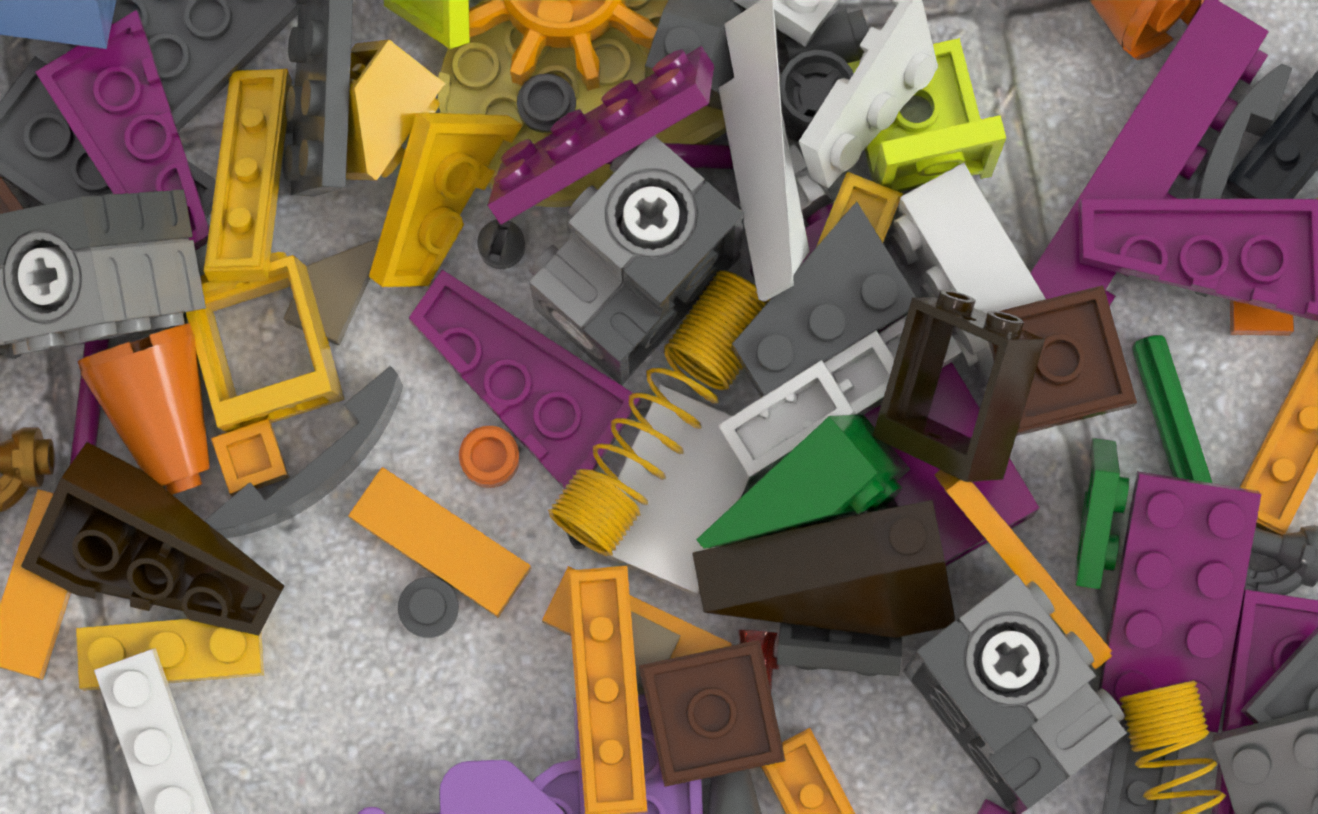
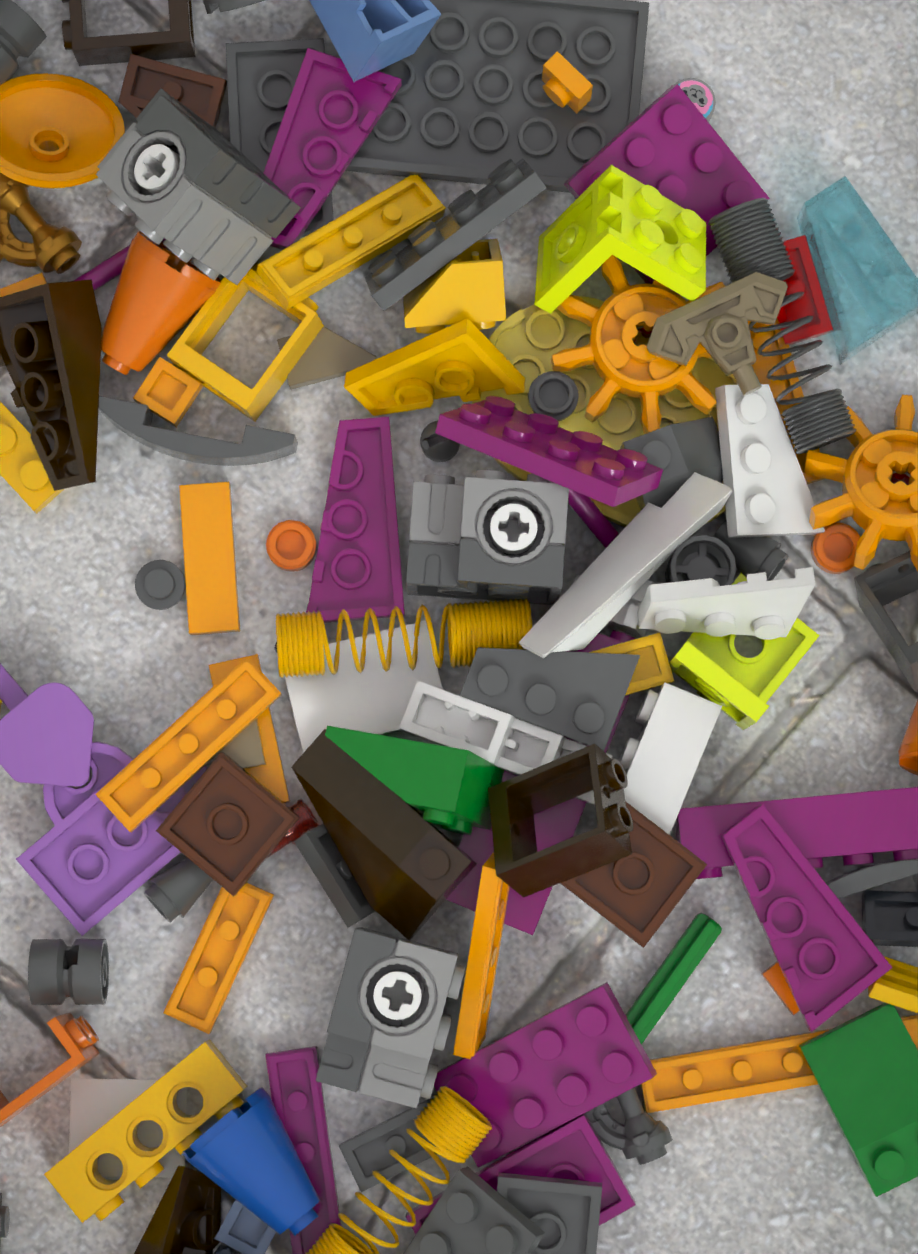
camera: 50 degrees right, 5 degrees up
(1105, 494) = (574, 974): green wing -> none

